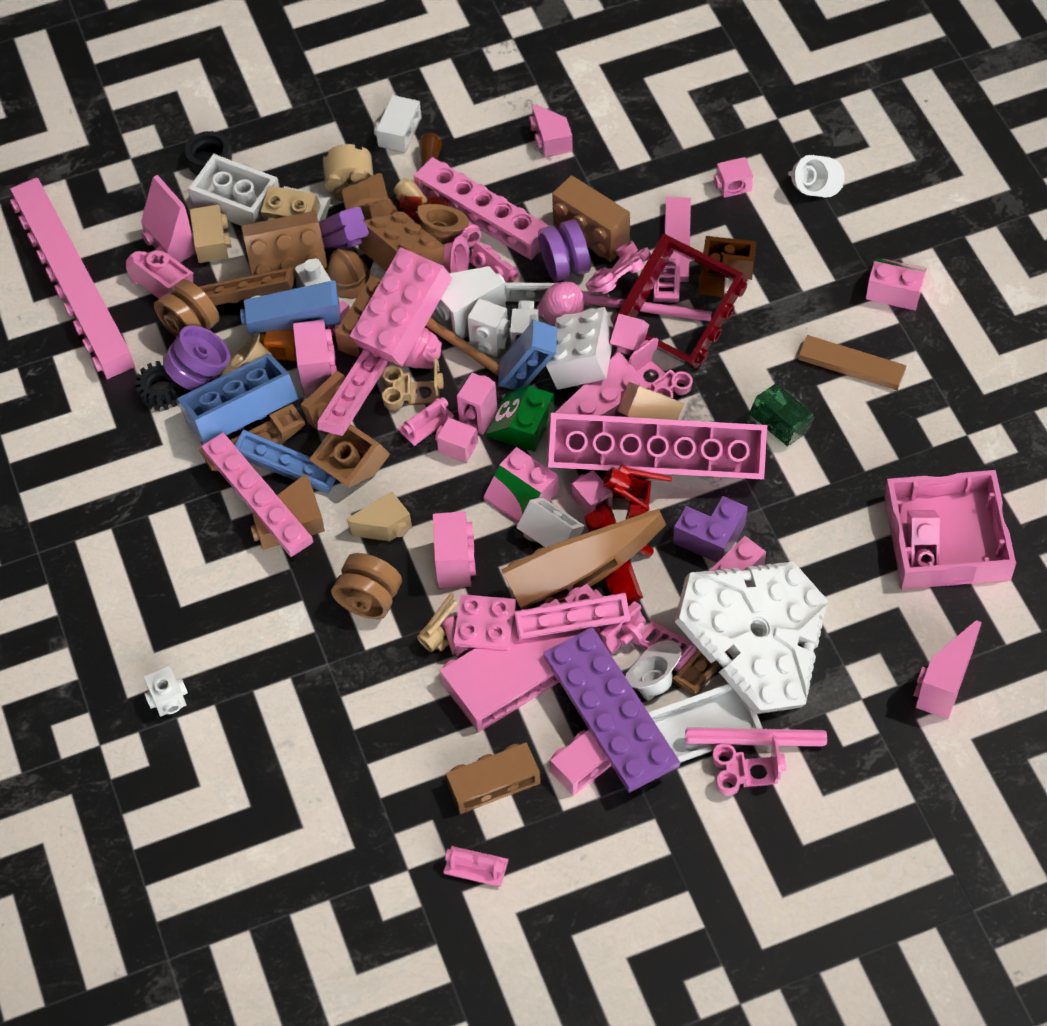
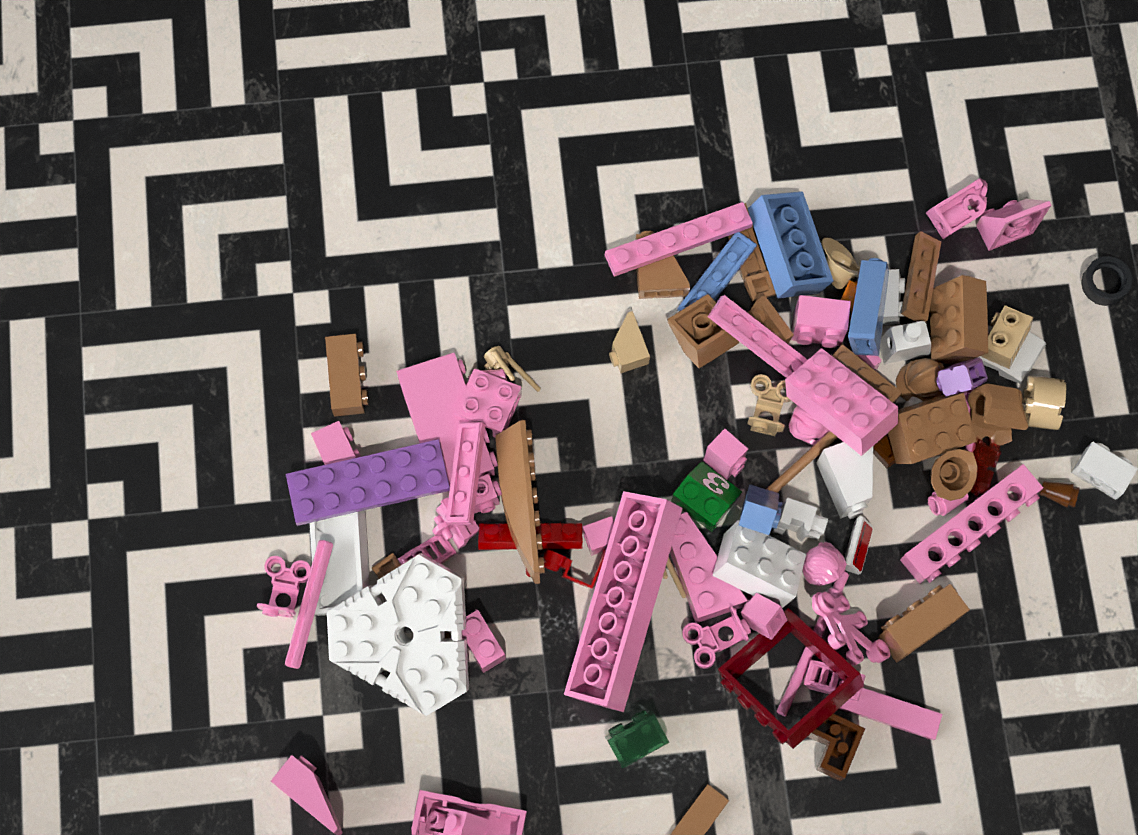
camera: 100 degrees right, 15 degrees up
(72, 279) = (980, 131): bright pink brick -> none
(157, 398) = (839, 175): black tyre -> none
(165, 691) = (508, 134): white brick -> none
(186, 307) = (902, 218): medium nougat wheel -> none
(196, 357) = (843, 216): medium lavender wheel -> none
(209, 233) = (999, 260): tan brick -> none
(234, 187) = (1047, 289): white brick -> none
(366, 586) = (555, 311): medium nougat wheel -> none
(409, 188) = (1009, 460): tan cone -> none
(426, 421) = (728, 409): bright pink hinge -> none
(453, 550) = (571, 392): bright pink brick -> none
(456, 255) = (903, 479): bright pink piece -> none
(456, 439) = (697, 430): bright pink brick -> none
(475, 866) = (274, 343): bright pink hinge -> none
(484, 256) = (906, 513): bright pink hinge -> none
(489, 328) = (811, 484): white brick -> none
(518, 482) = (628, 471): bright pink slope -> none
(547, 523) = (574, 486): white brick -> none
(552, 131) = (1055, 621): bright pink slope -> none
(564, 250) = (887, 584): medium lavender wheel -> none
(618, 482) = (593, 554): red plant -> none
(645, 403) = (673, 611): tan brick -> none
(654, 669) = (400, 533): white piece -> none
(713, 534) = (522, 634): medium lavender brick -> none
(733, 177) = (950, 791): bright pink brick -> none

